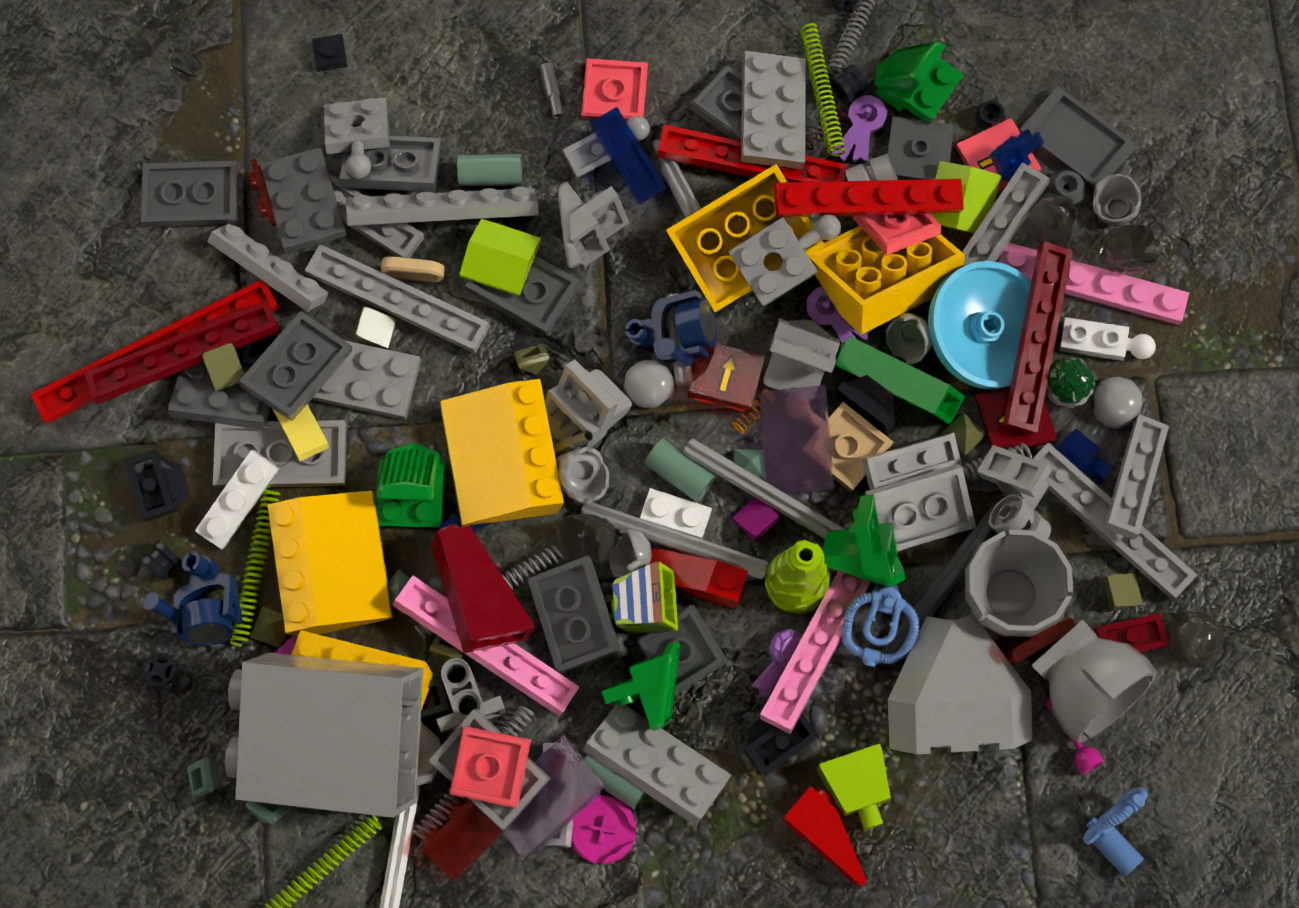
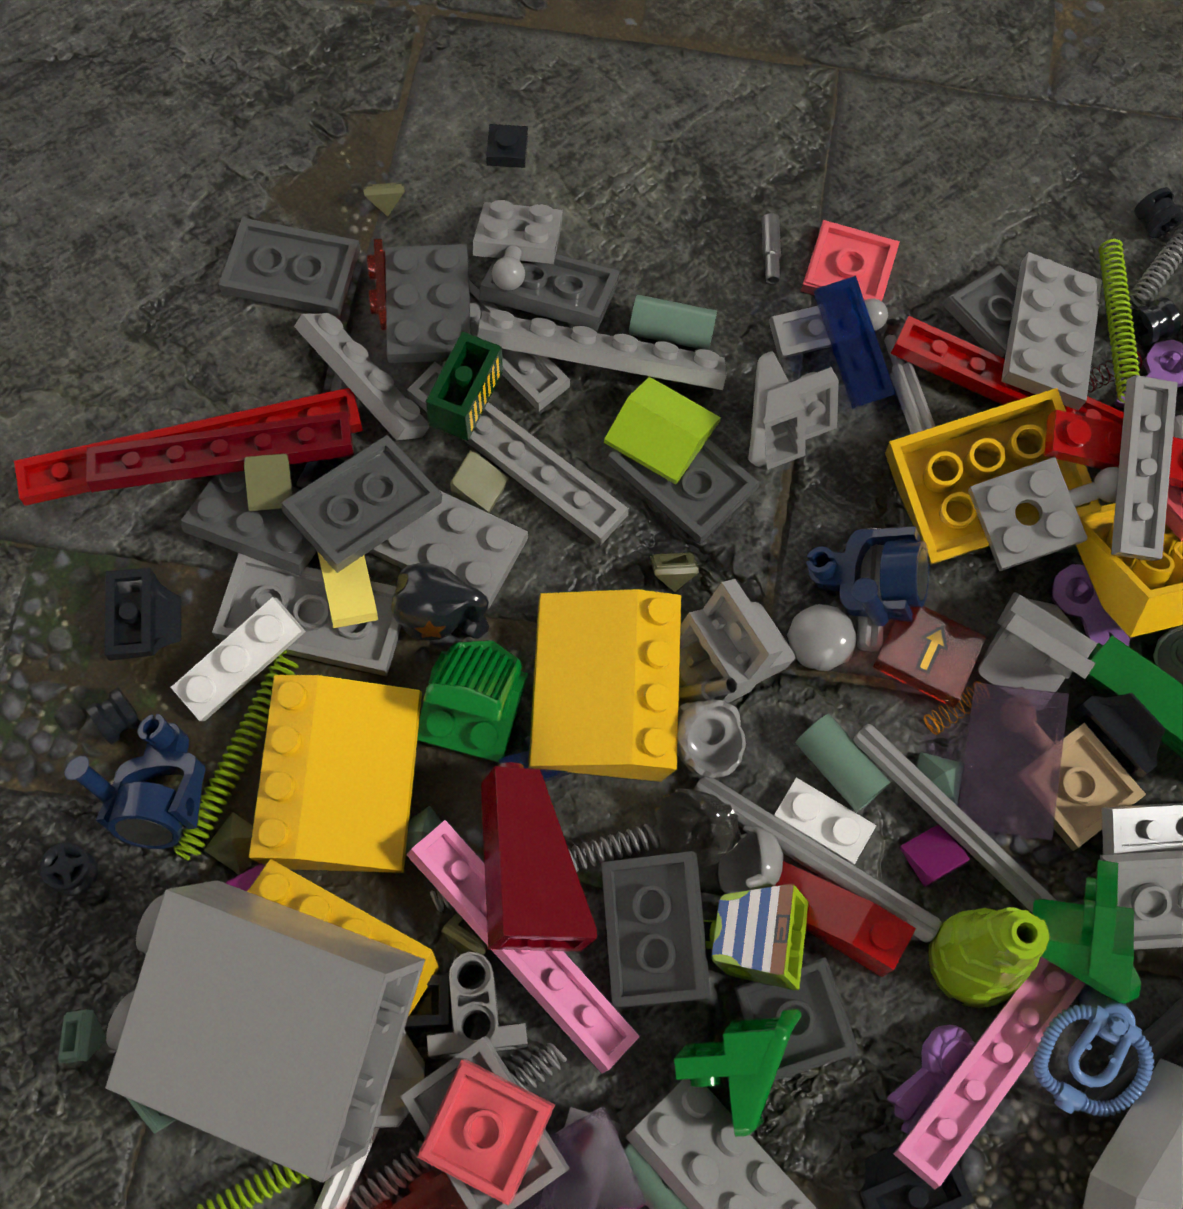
camera: 10 degrees right, 5 degrees down
(246, 116) = (385, 195): none -> olive slope
(348, 261) = (464, 386): none -> dark green brick
(367, 425) = (436, 602): none -> black piece
(412, 269) = (546, 420): tan tile -> none
(844, 212) = (1144, 468): none -> light grey plate

